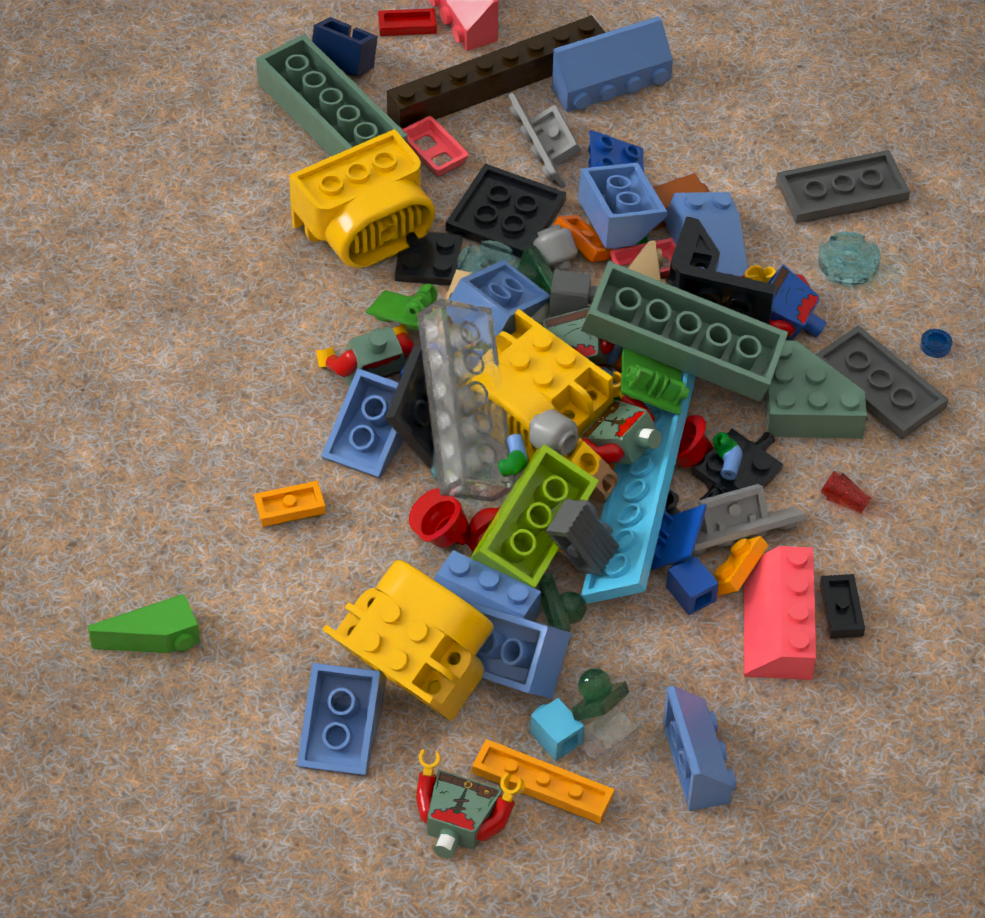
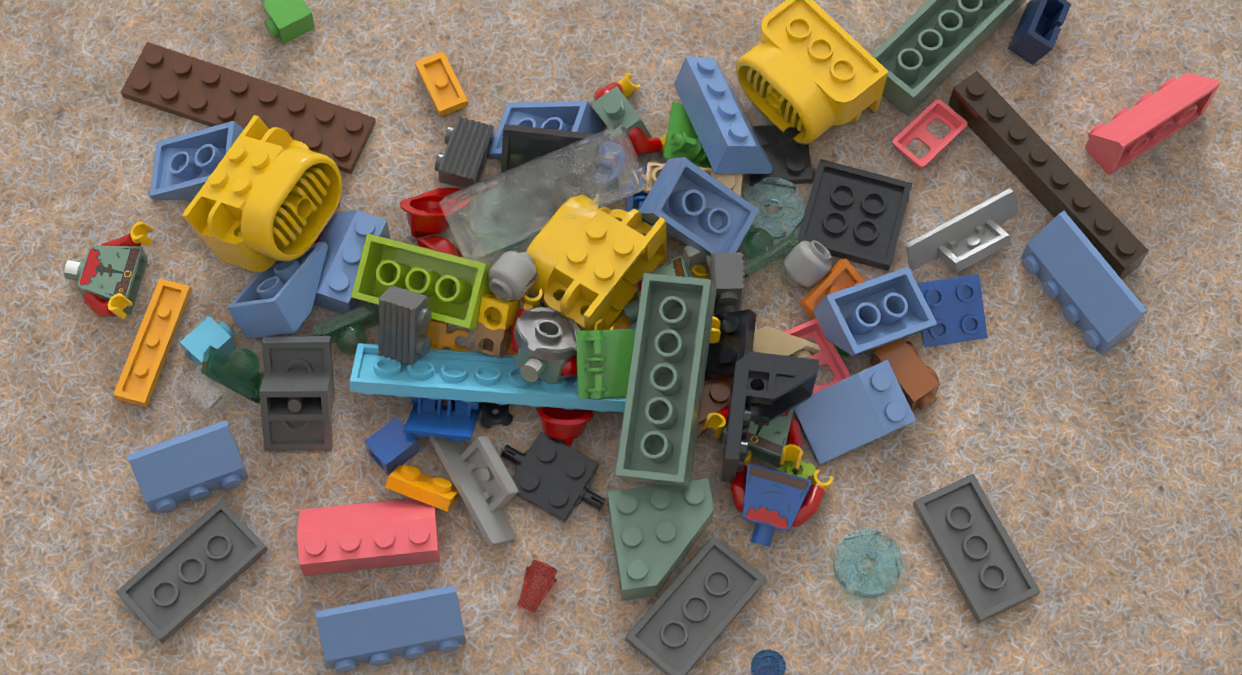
camera: 80 degrees right, 15 degrees up
(267, 684) = (221, 95): none -> reddish brown plate
(378, 491) = (465, 153): none -> dark grey brick
(395, 274) = (719, 119): none -> medium blue slope
(407, 22) = (1107, 84): red tile -> none
(517, 459) = (484, 251): green arm -> none
(615, 420) = (554, 347): none -> flat silver tile
(628, 646) = (297, 393): none -> dark grey bracket
(730, 453) = (553, 460): arm -> none
(801, 766) = (191, 571): none -> dark grey plate
(842, 606) = (389, 586): black plate -> none
(883, 600) = (391, 628): none -> medium blue slope

